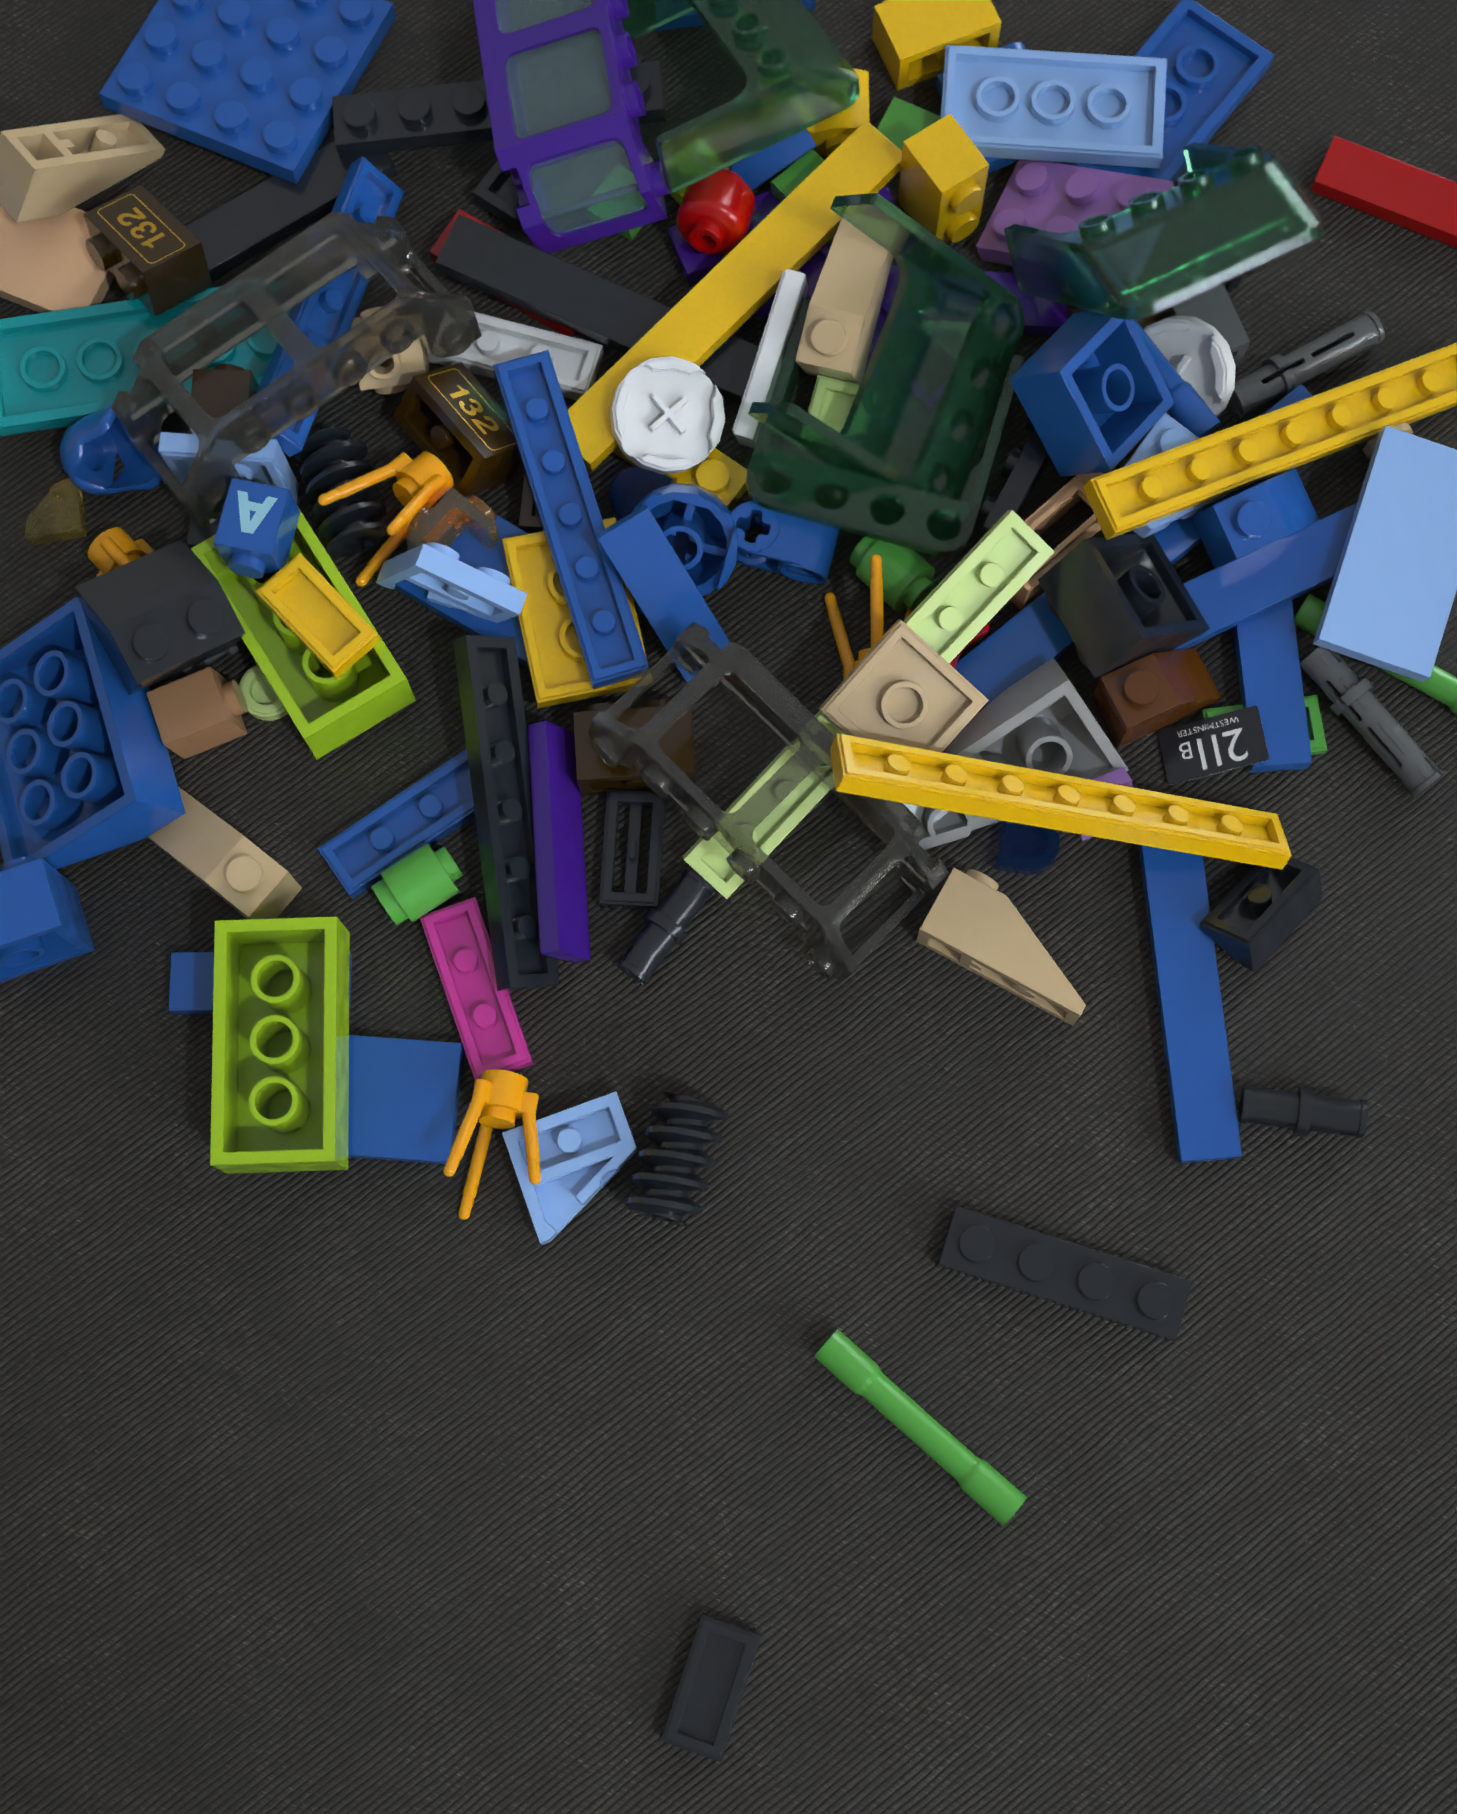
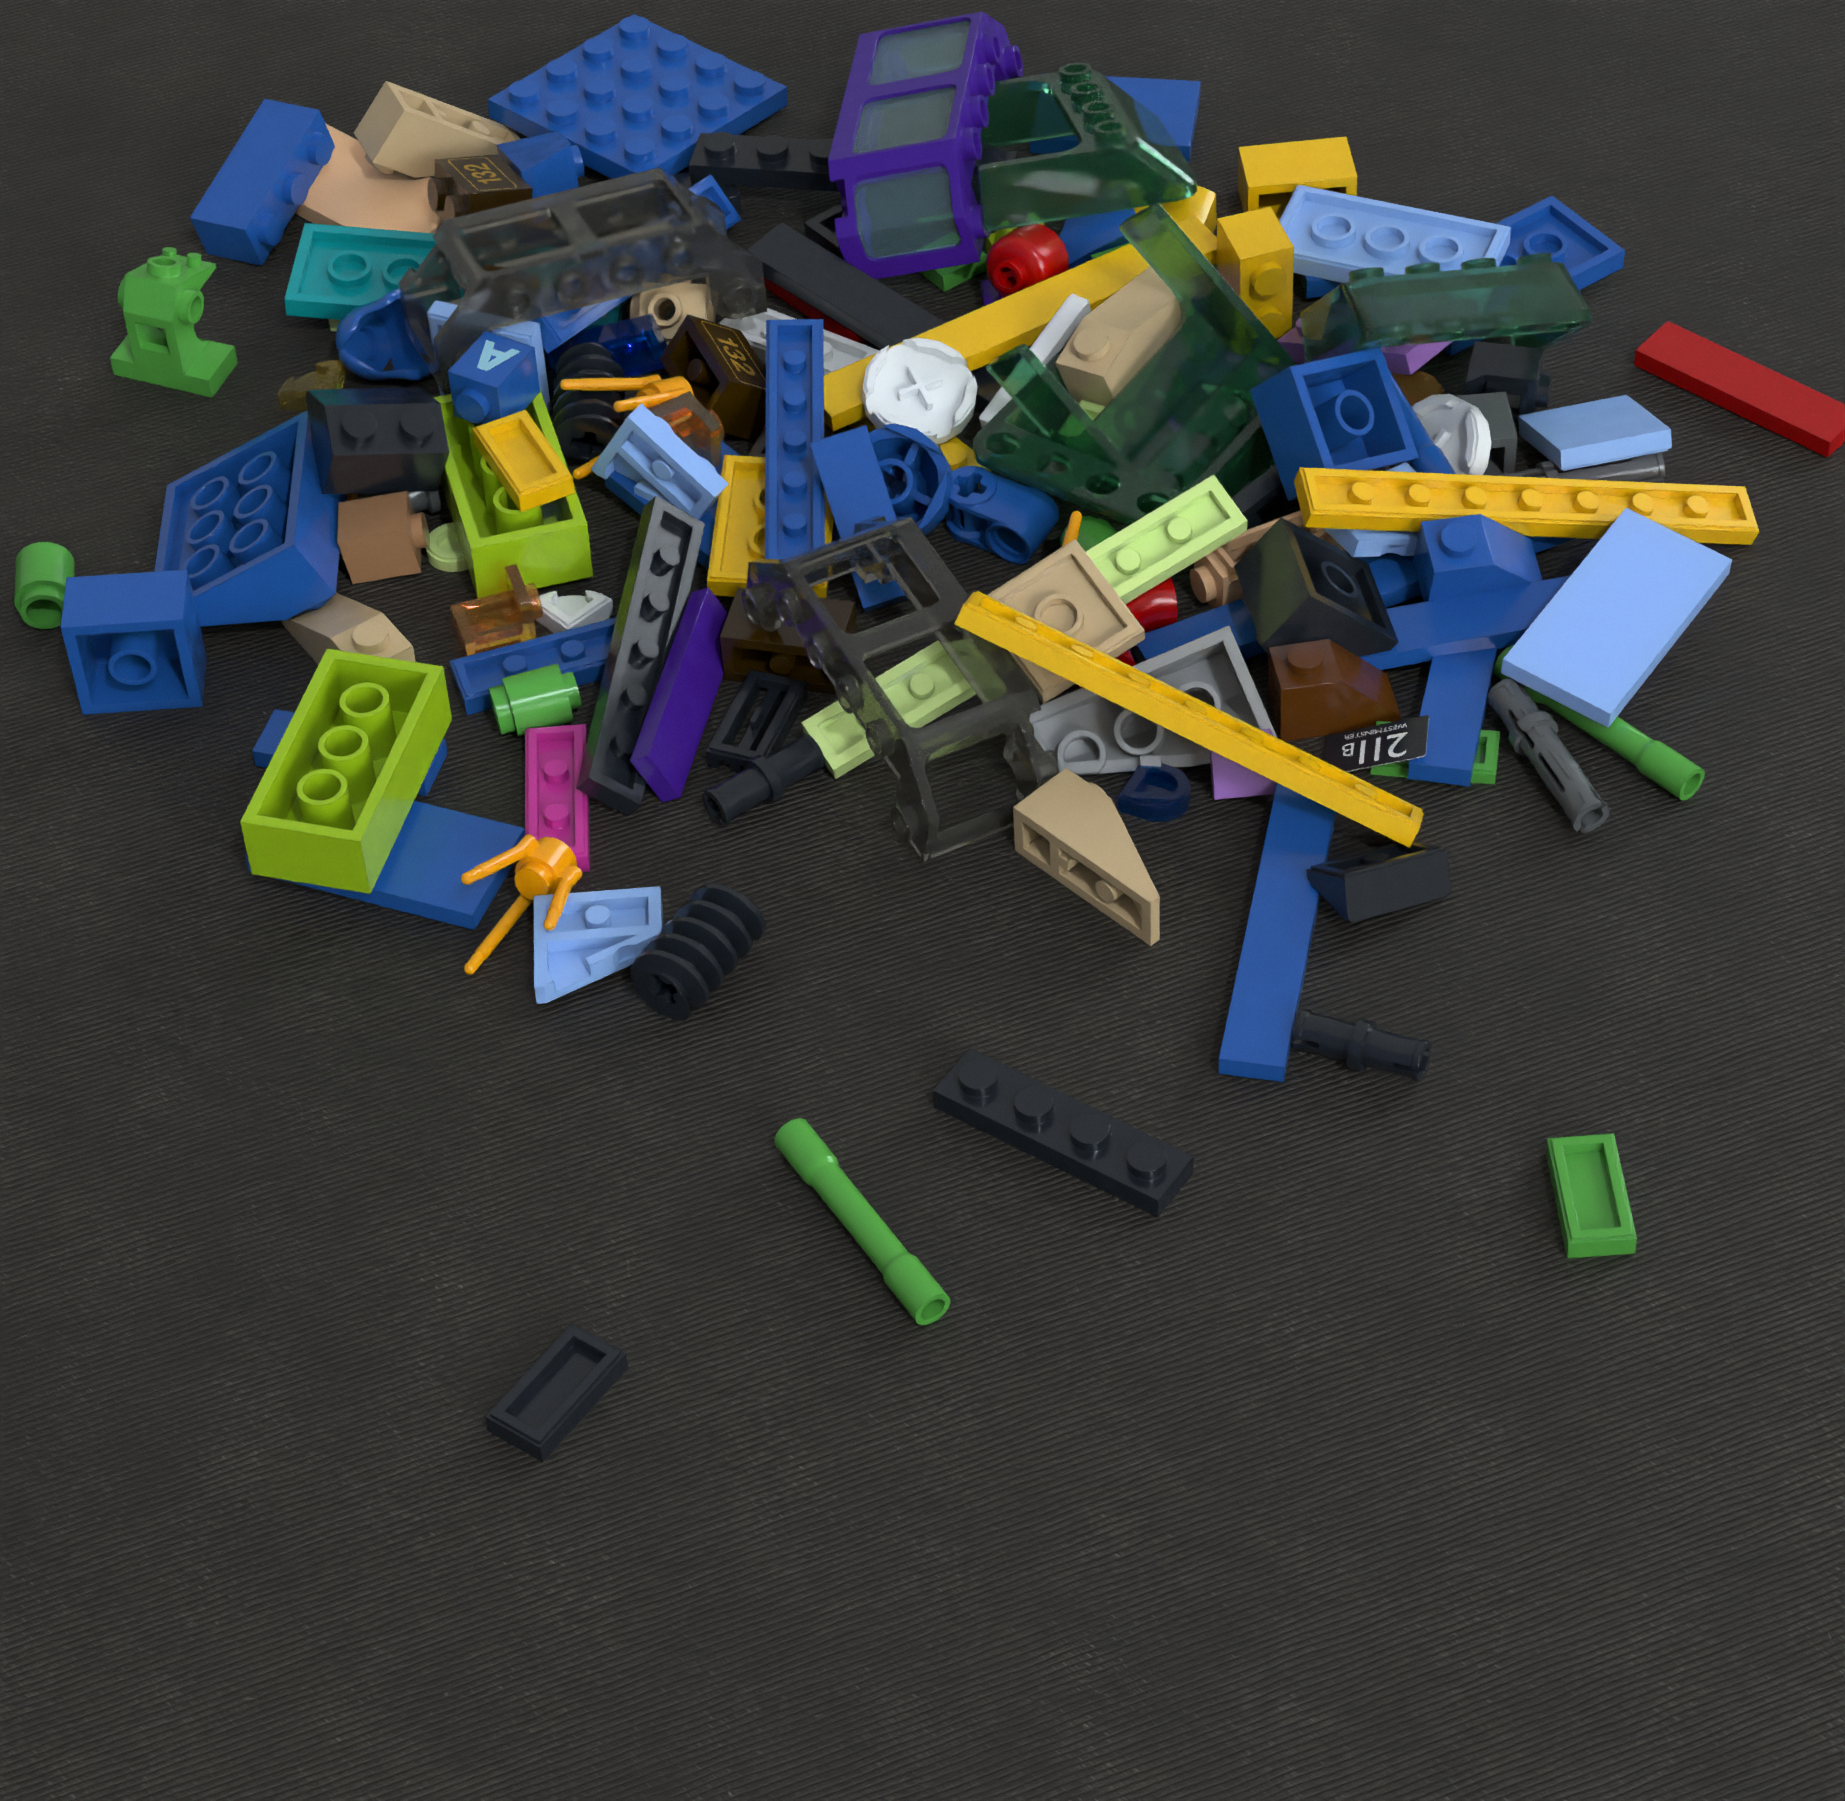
camera: 15 degrees right, 30 degrees down
(190, 185) = (544, 162): none -> blue slope
(347, 789) = (500, 617): none -> clear orange bracket
(358, 410) = (632, 343): none -> clear blue plate
(410, 751) = (574, 610): none -> white tile
(1310, 304) = (1595, 432): none -> light blue tile

